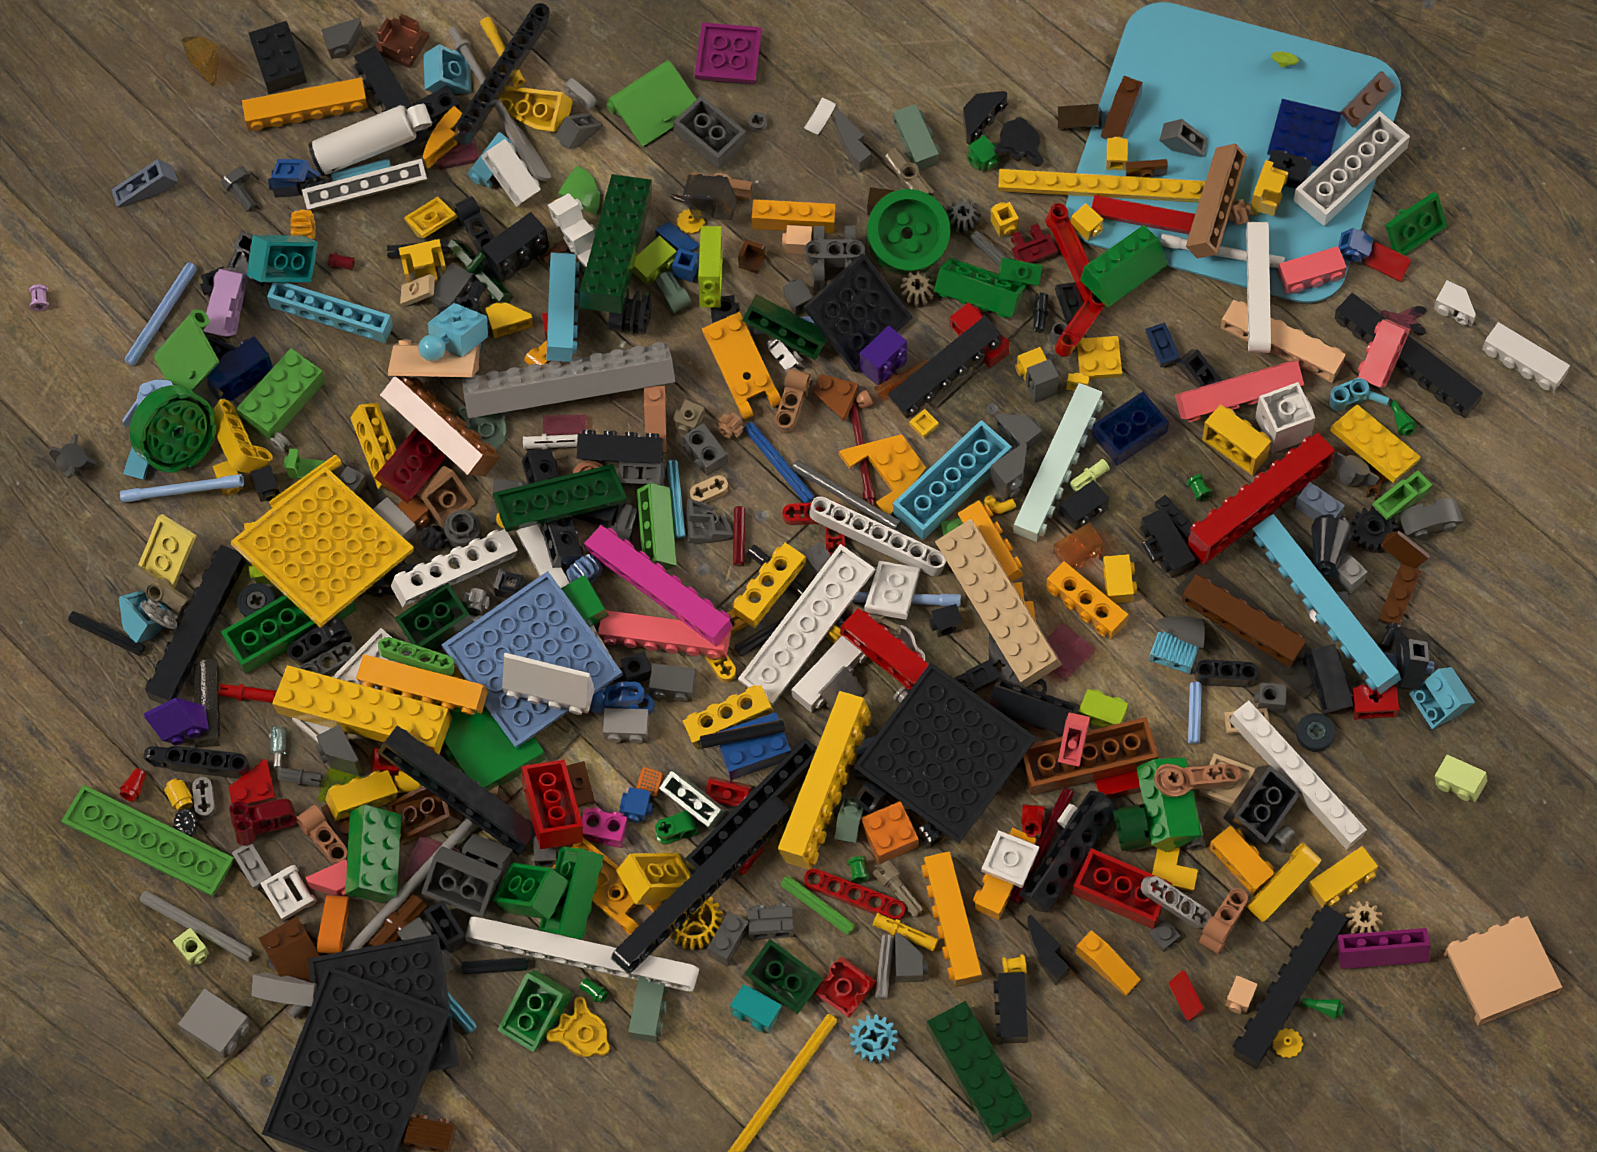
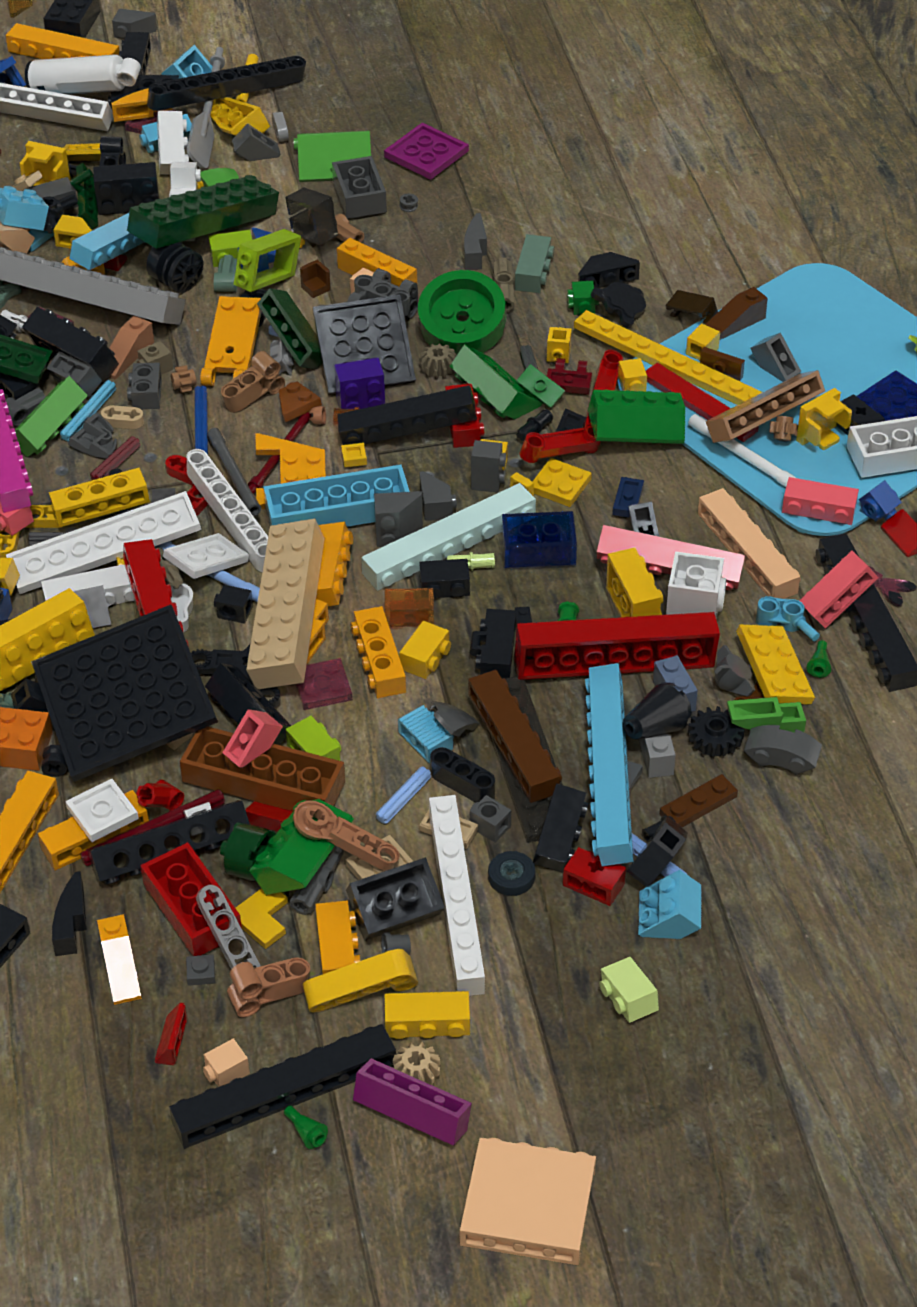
camera: 30 degrees right, 20 degrees down
(401, 40) = (172, 43): copper panel -> none
(820, 116) = (463, 223): white sticker -> none
(968, 210) = (526, 330): dark grey gear -> none
(998, 507) = (363, 544): yellow arm -> none
(1014, 964) = (34, 913): yellow bush -> none
(1258, 287) = (752, 485): white beam -> none
(1287, 1043) = (238, 1142): yellow piece -> none
(1404, 549) = (732, 759): reddish brown slope -> none

